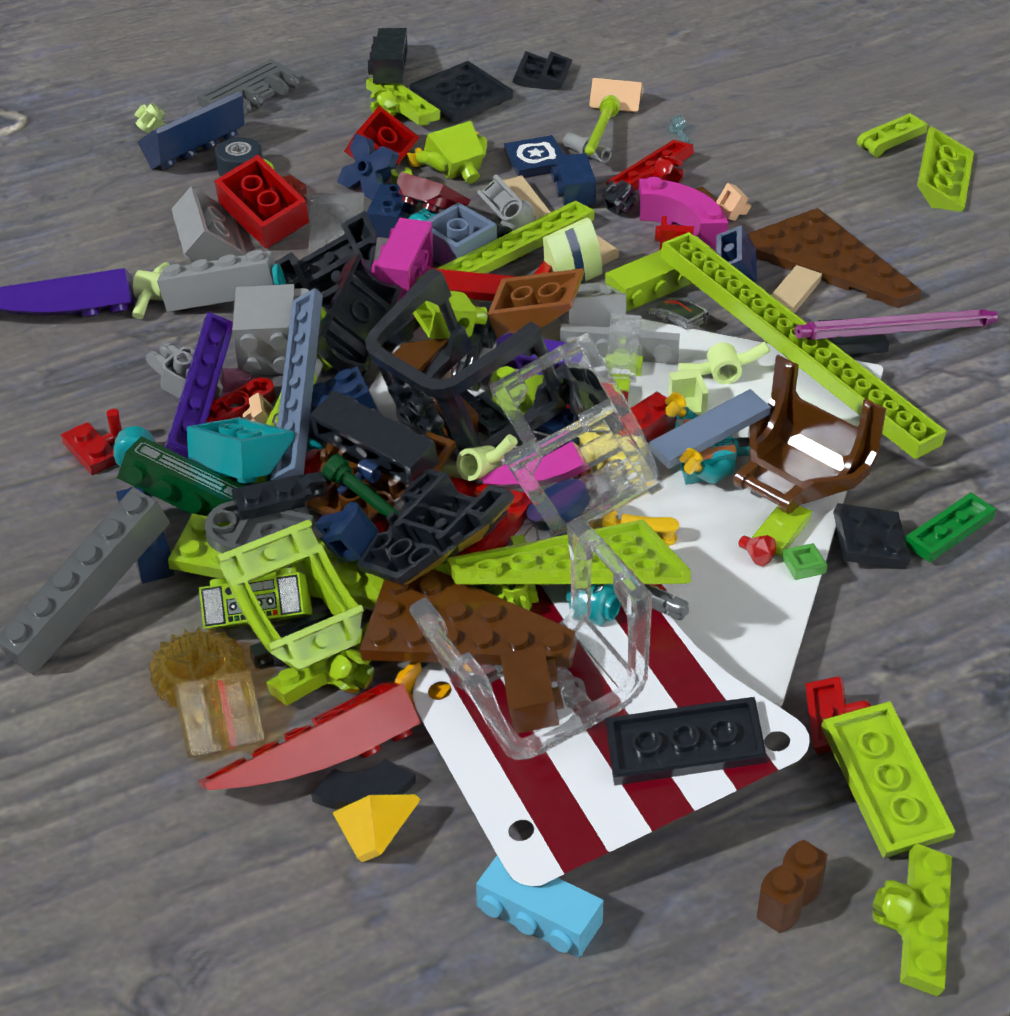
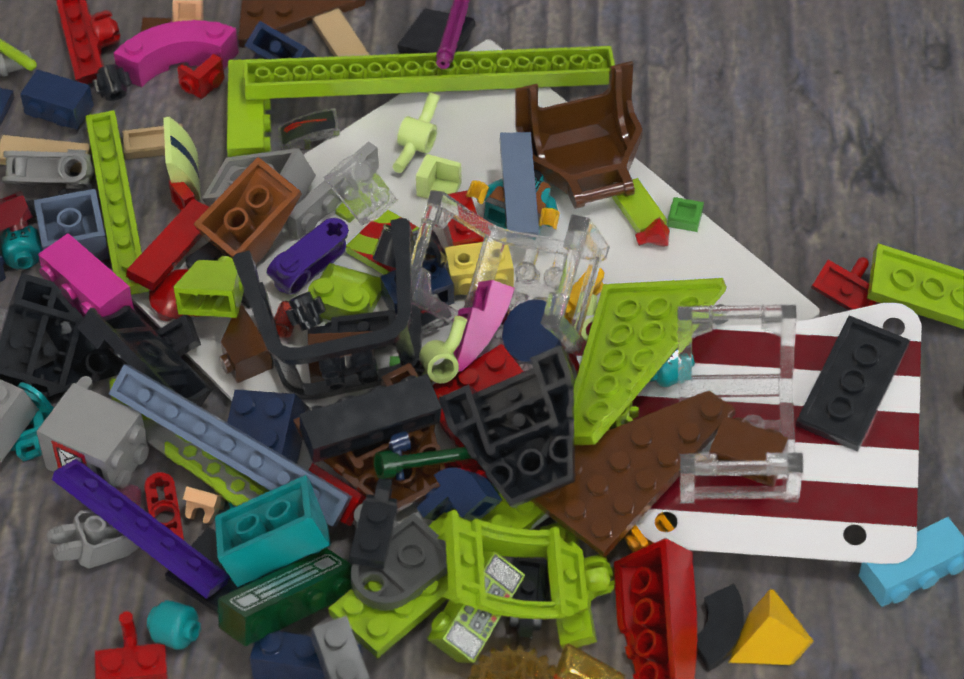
camera: 60 degrees left, 10 degrees up
(871, 536) = (679, 159): black plate -> none
(950, 527) = (701, 108): green plate -> none

